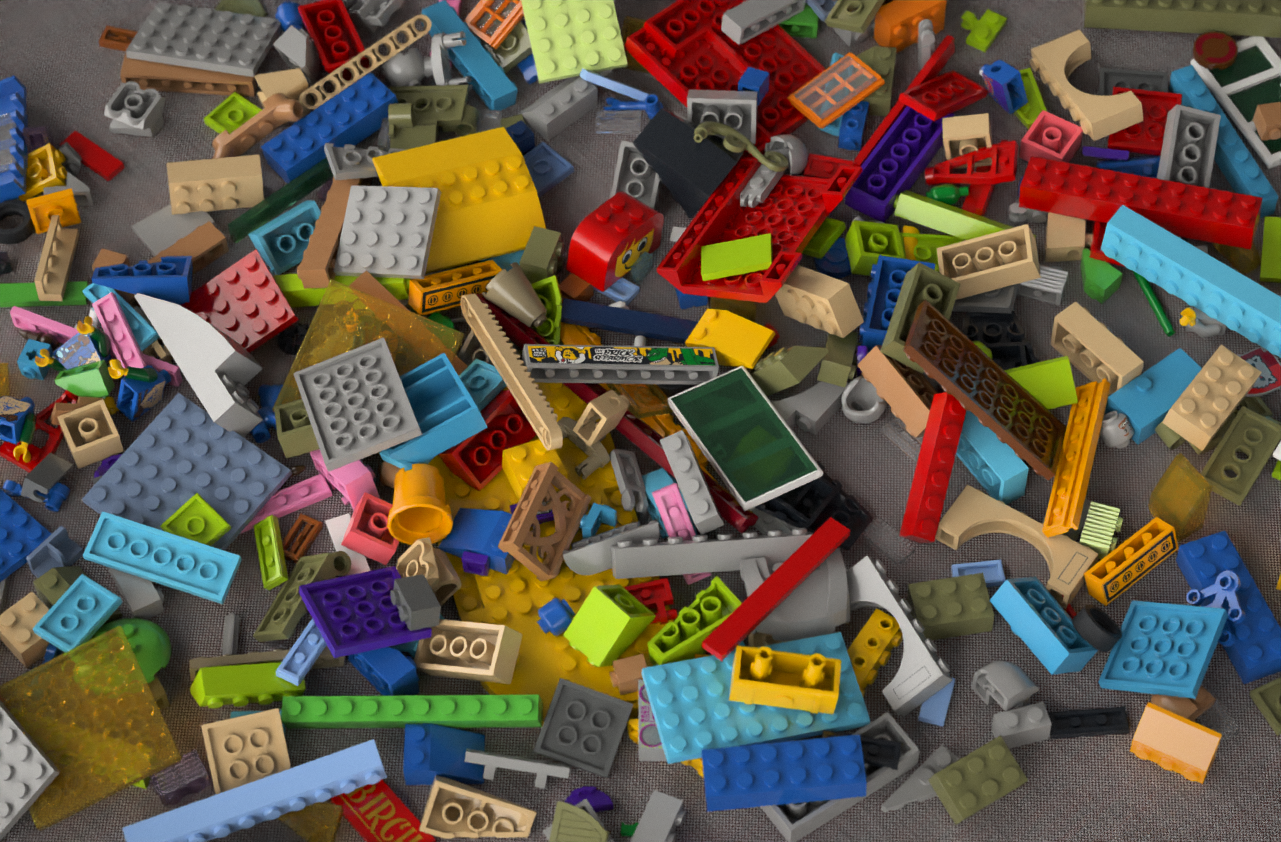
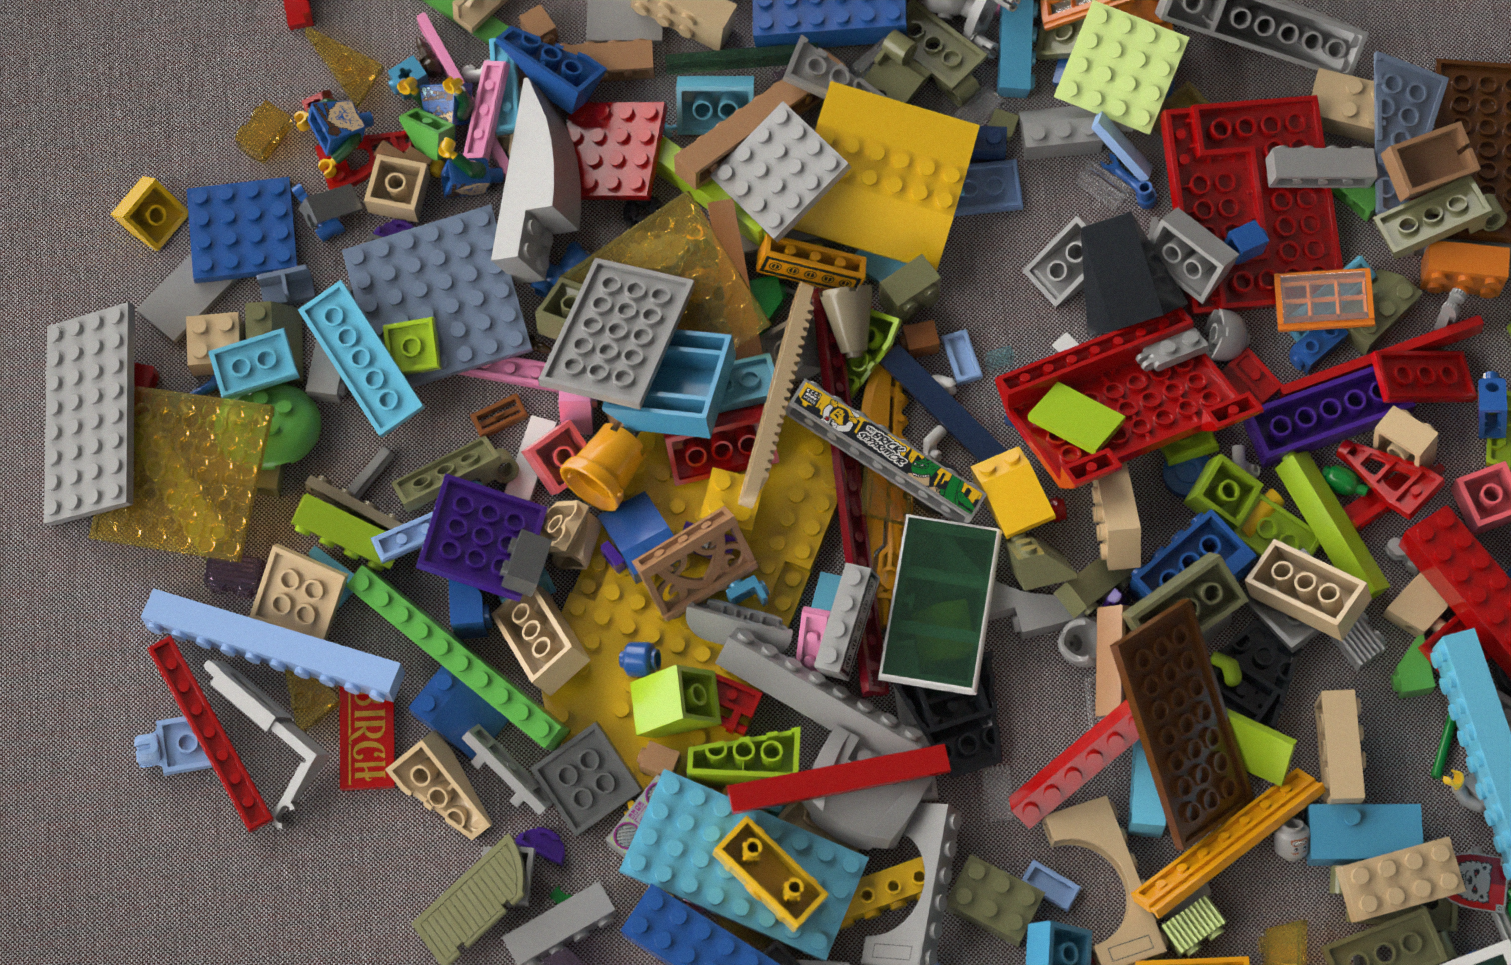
camera: 40 degrees right, 15 degrees up
(270, 552) = (463, 413): lime tile -> none
(597, 453) = (804, 501): dark tan connector -> none
(608, 408) = (823, 497): tan torso -> none
(613, 240) = (987, 316): red brick -> none
(629, 480) = (809, 569): light grey hinge -> none
(738, 142) = (1174, 300): olive plant -> none

